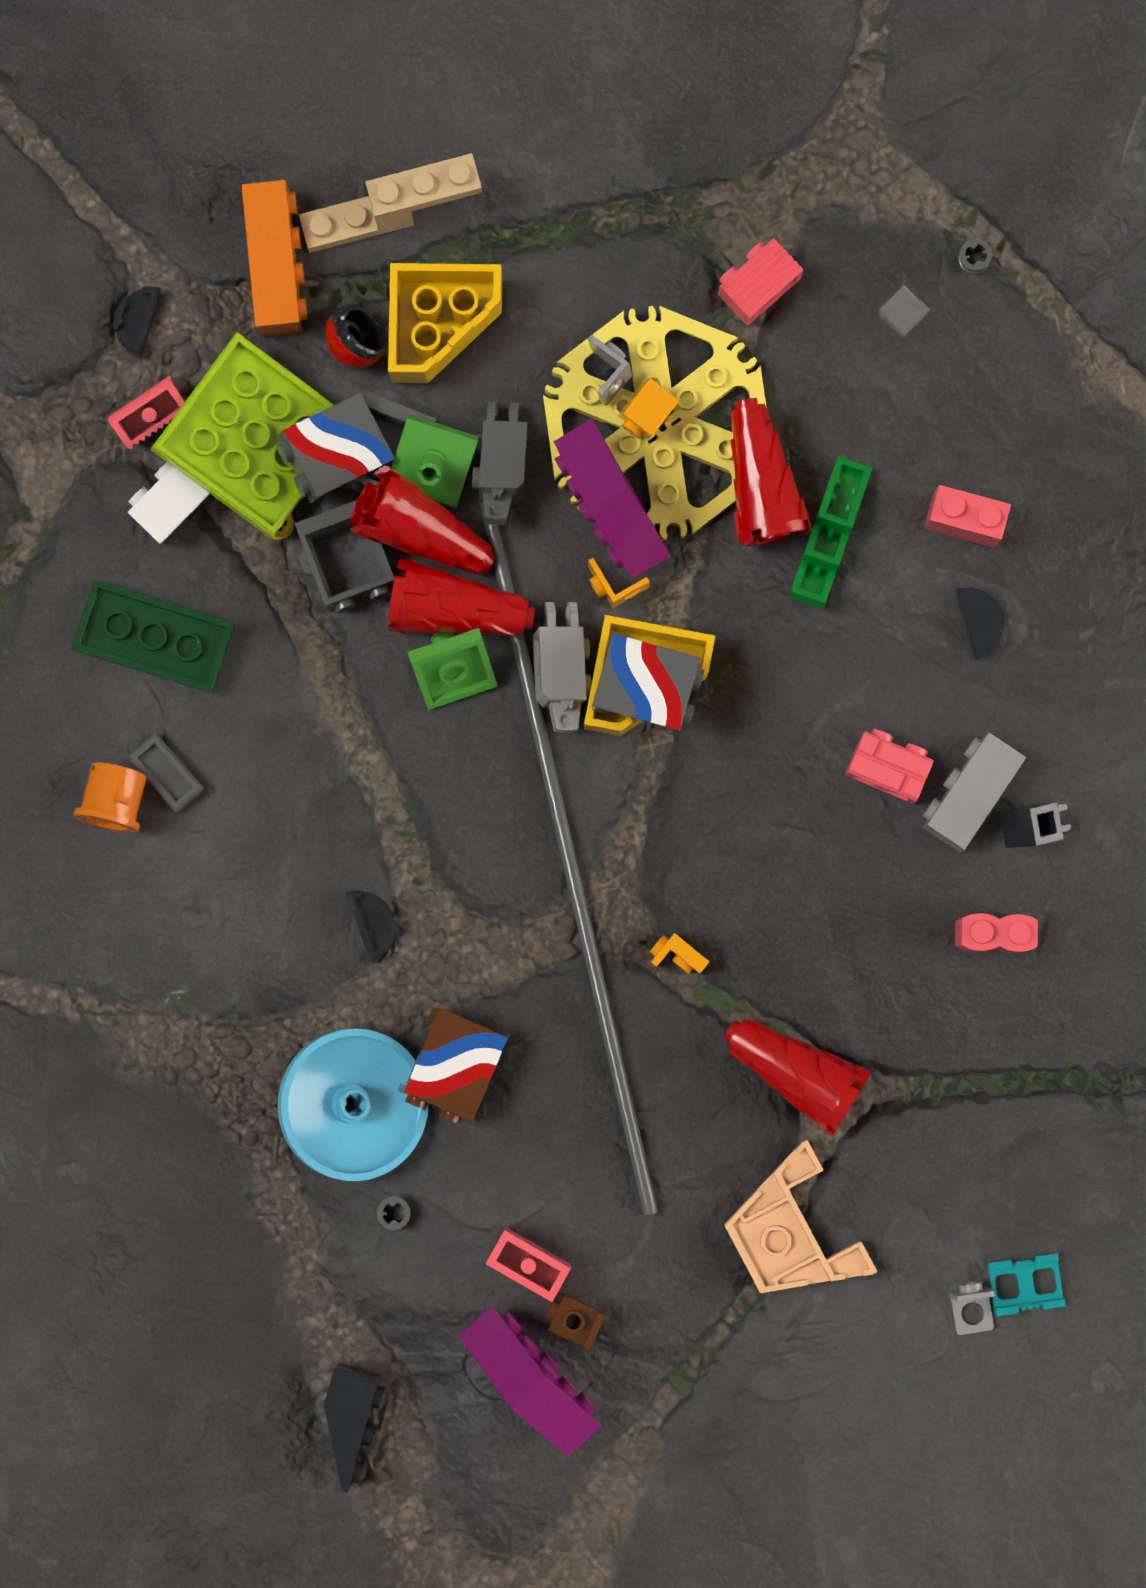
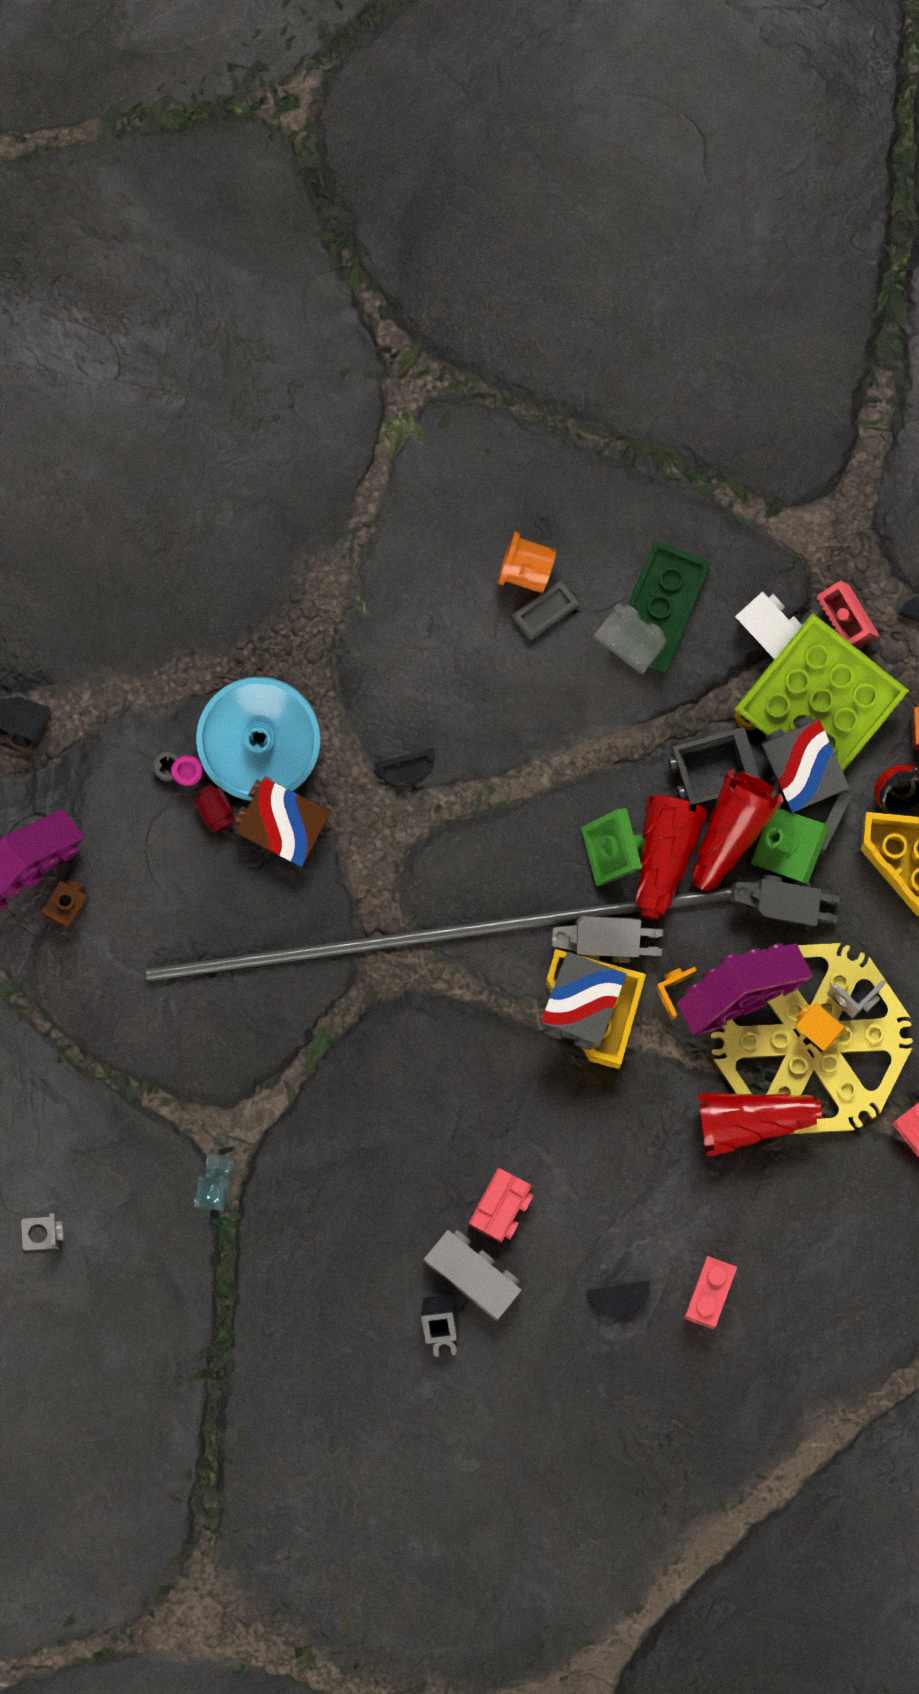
camera: 90 degrees right, 5 degrees down
(195, 664) = (631, 637): none -> clear bracket
(398, 1187) = (187, 770): none -> dark pink tile
(441, 1150) = (214, 808): none -> dark red brick
(528, 1264) = (115, 869): coral brick -> none
(685, 957) = (355, 1021): light orange bracket -> none
(778, 1240) = (114, 1076): light nougat wing -> none
(806, 1076) = (247, 1107): red cone -> none
(830, 532) = (706, 1176): green slope -> none
(901, 1109) = (213, 1189): none -> clear light blue plate
(903, 311) = (895, 1258): clear tile -> none
(1006, 934) = (350, 1289): coral brick -> none
(1027, 1296) = (48, 1280): teal piece -> none

